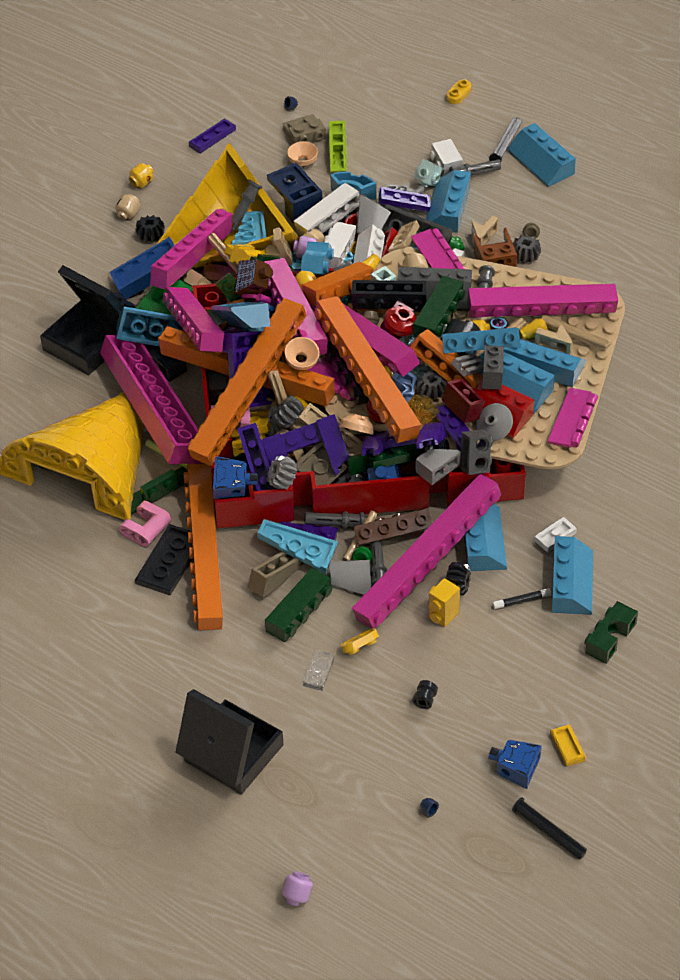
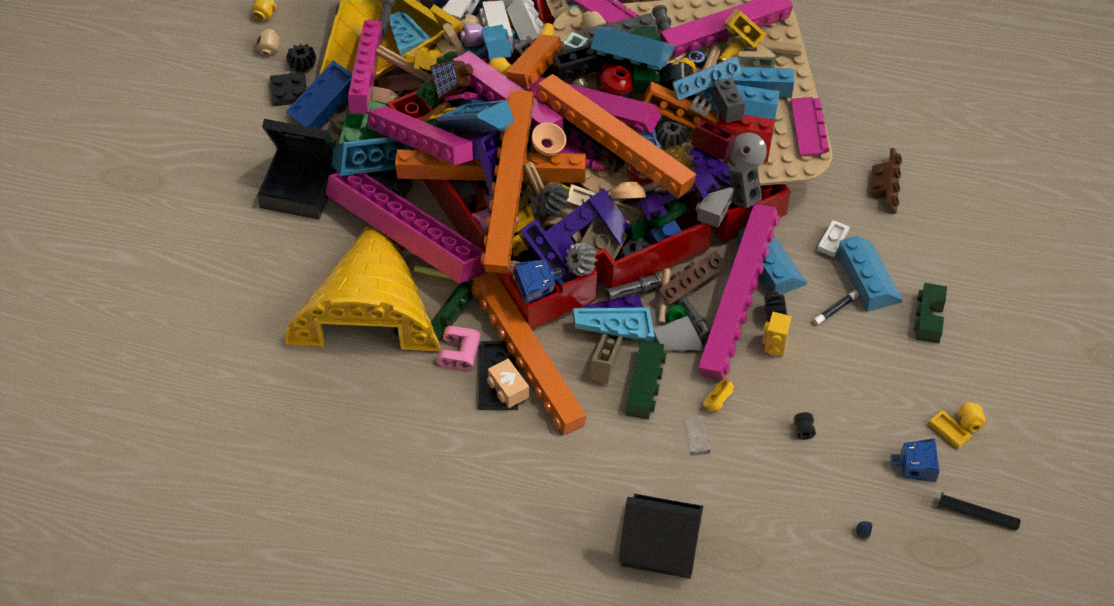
camera: 25 degrees left, 5 degrees up
(123, 250) = (287, 88): none -> black plate
(169, 567) = (508, 383): none -> light nougat brick
(425, 292) = (632, 47): none -> dark azure slope
(552, 307) = (745, 28): none -> yellow brick
(593, 739) = (971, 417): none -> yellow head
(642, 496) = (886, 180): none -> reddish brown bracket

